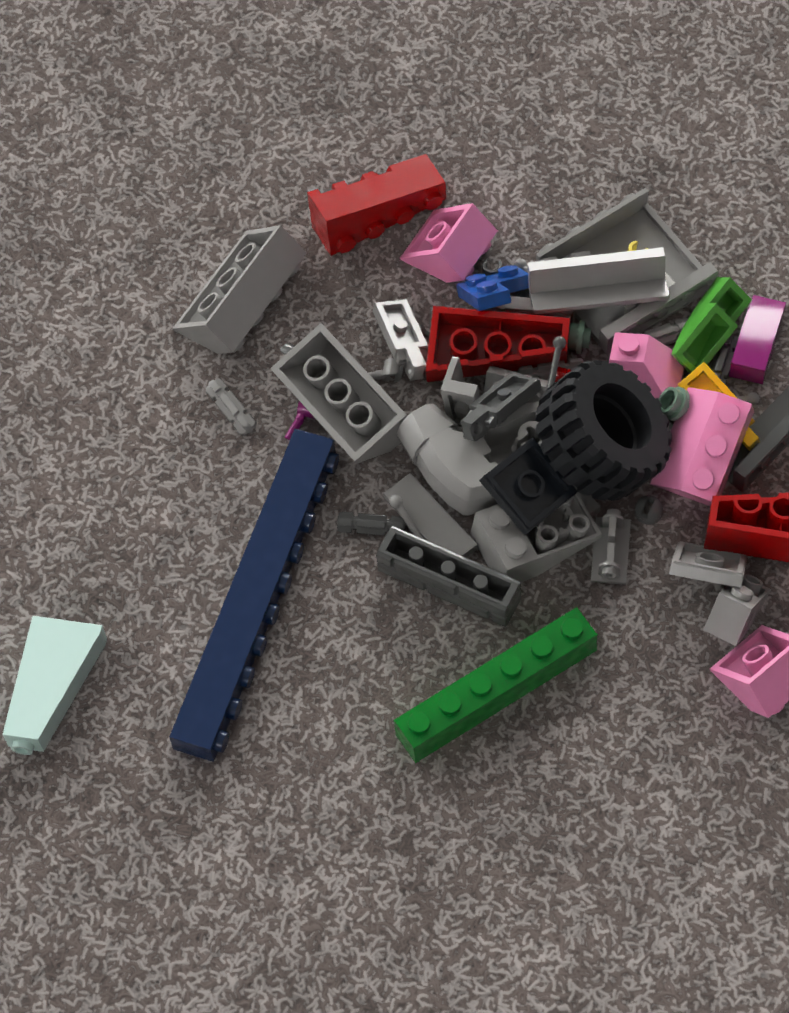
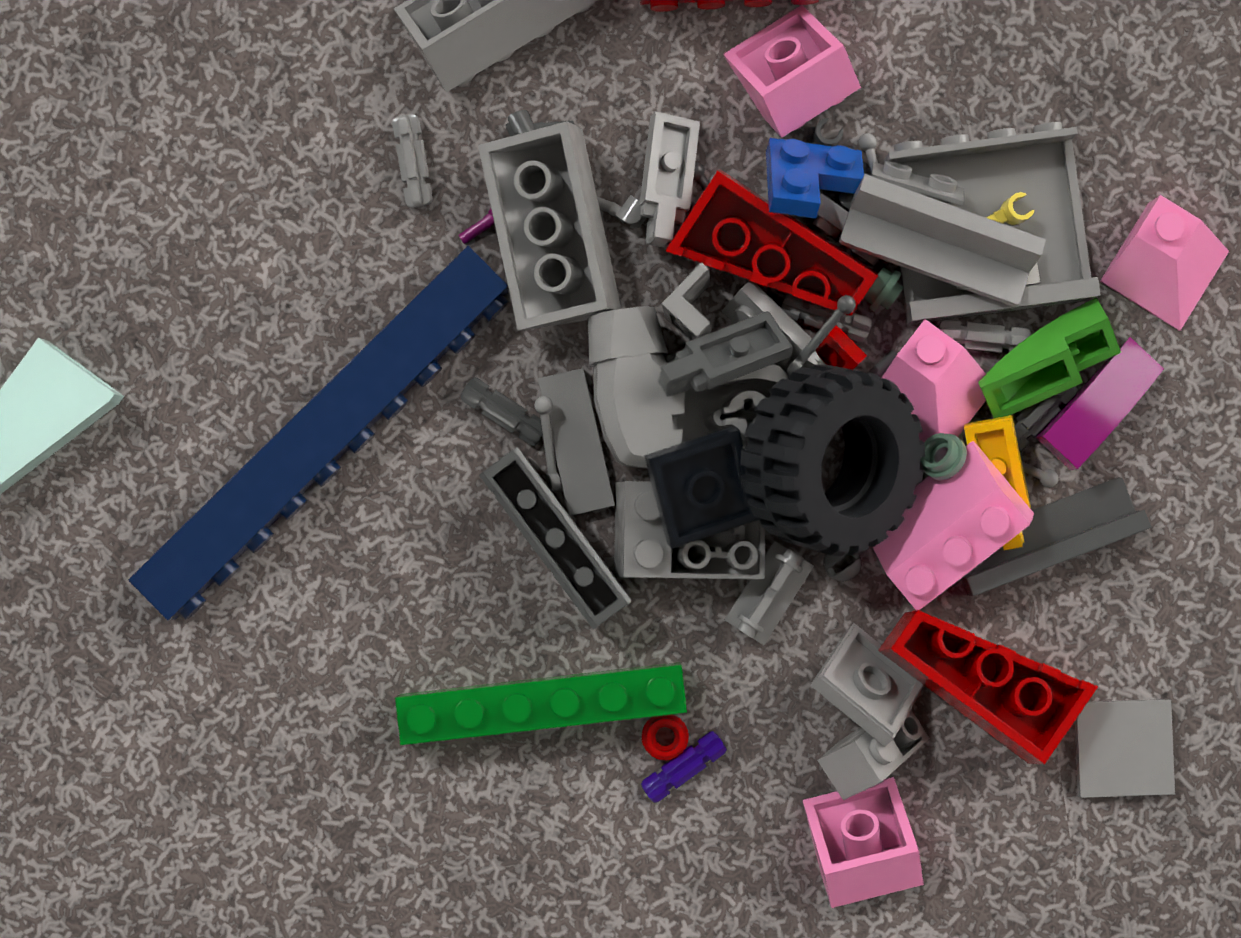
camera: 20 degrees right, 25 degrees up
(592, 661) = (669, 751): none -> red plate
(616, 684) = (683, 767): none -> dark purple axle
(749, 240) = (1166, 262): none -> bright pink slope

